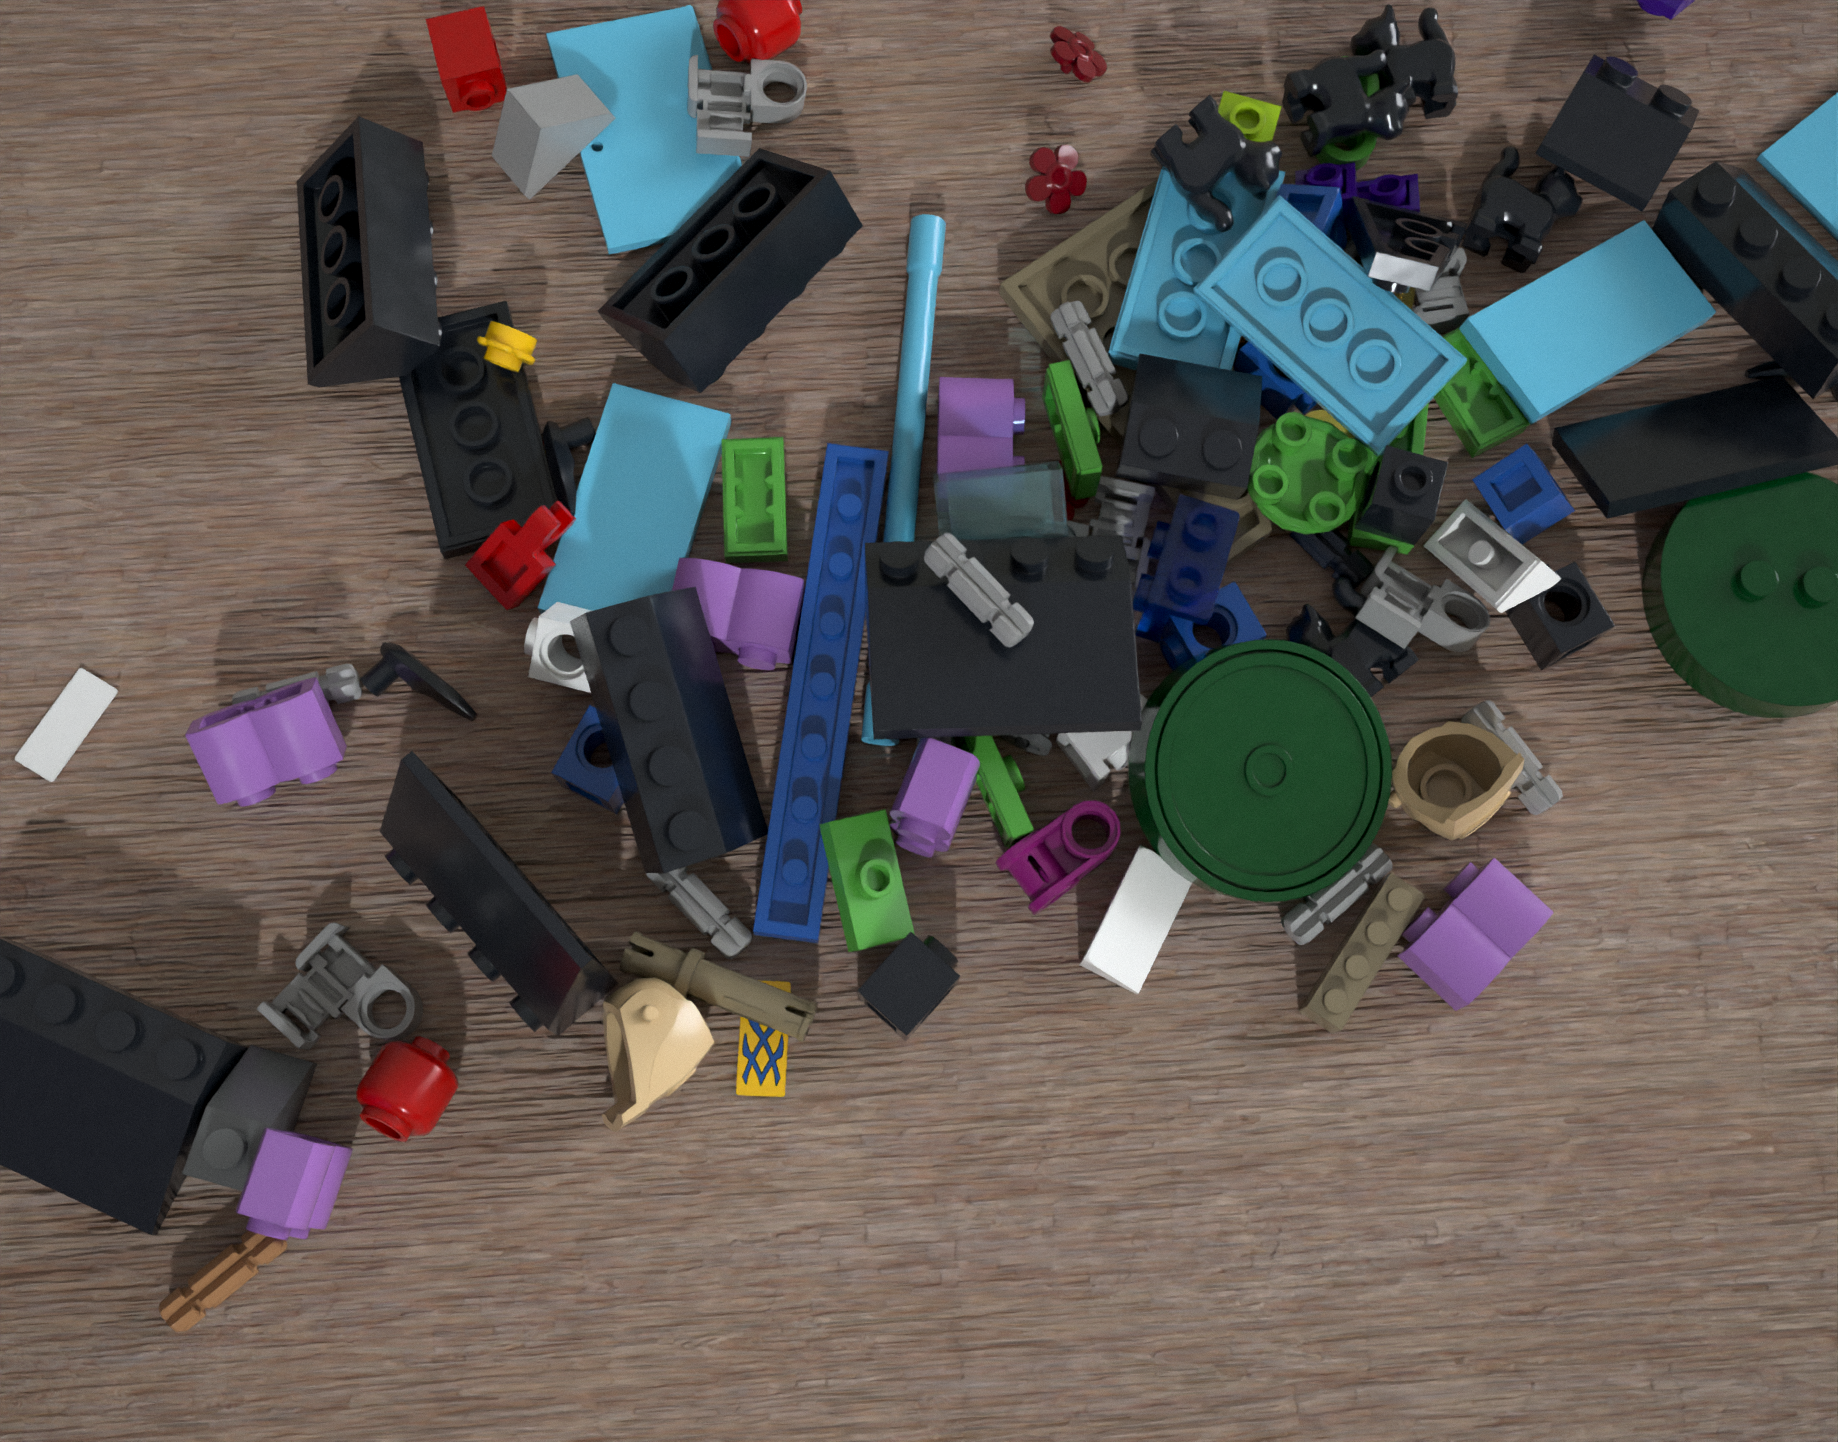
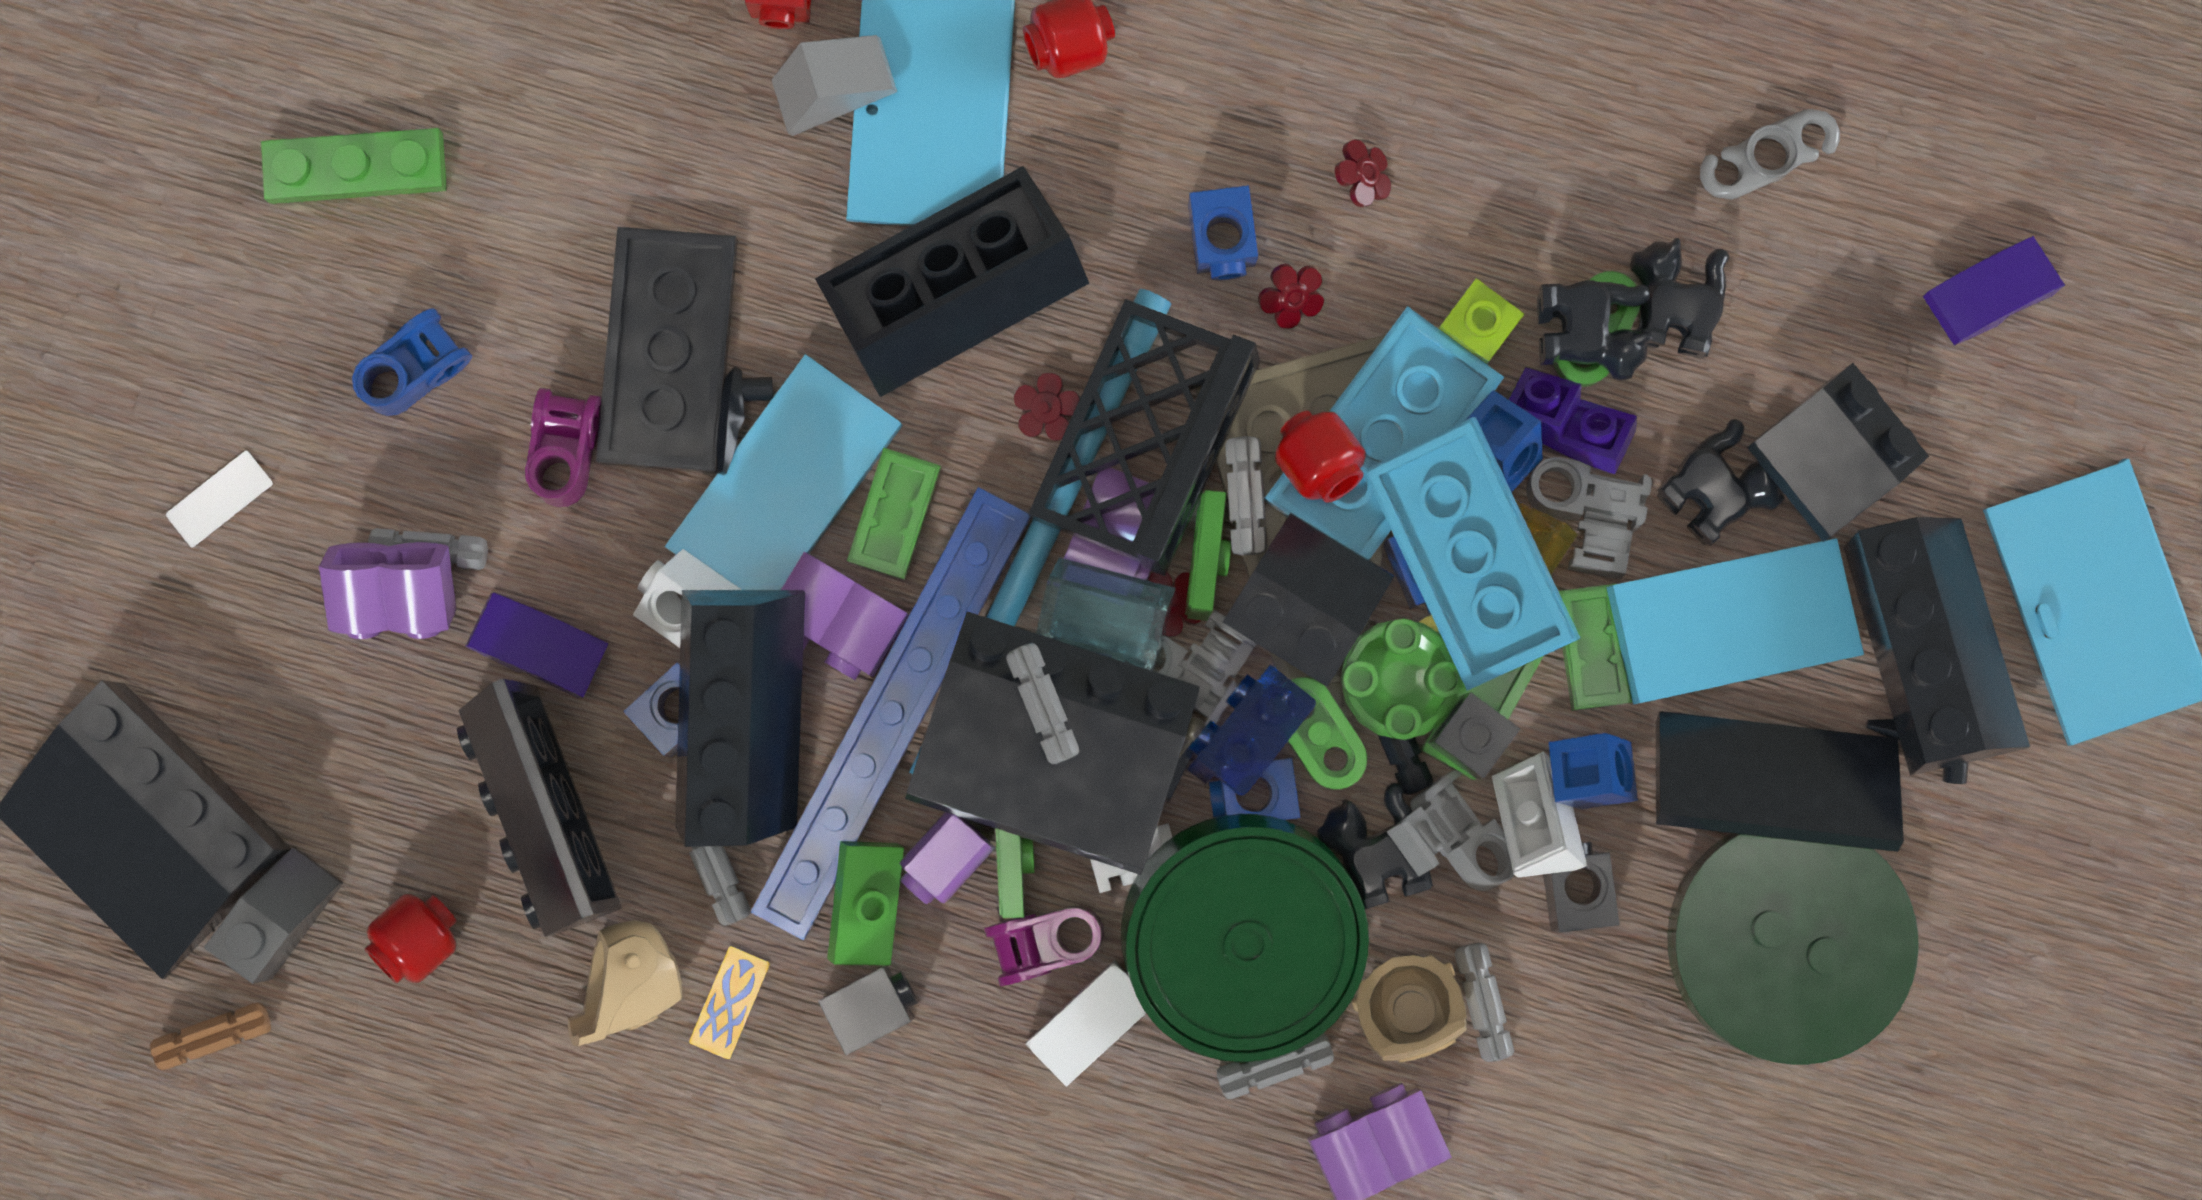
camera: 25 degrees right, 10 degrees up
(105, 364) = (353, 165): none -> bright green plate
(221, 517) = (413, 362): none -> blue piece
(292, 1184) = (292, 987): medium lavender brick -> none
(339, 977) = (381, 817): light grey piece -> none
(367, 258) = (620, 155): black slope -> none
(401, 538) = (562, 433): none -> magenta piece
(401, 663) = (529, 554): black bar -> none
(448, 742) = (536, 645): none -> dark purple slope
(507, 346) = (719, 291): yellow plate -> none
(514, 556) = (660, 494): red plate -> none
(719, 986) = (704, 946): dark tan pin -> none
(736, 98) = (1008, 107): light grey piece -> none
(864, 357) = (1045, 407): none -> dark red plant
(963, 120) = (1223, 206): none -> blue brick
(1023, 345) = (1194, 452): none -> black fence
(1148, 285) = (1320, 455): none -> red head
(1217, 151) = (1441, 344): black animal -> none
(1260, 543) = (1322, 731): none -> bright green plate
(1362, 953) = (1274, 1126): dark tan piece -> none
(1401, 244) = (1572, 502): black wing -> none

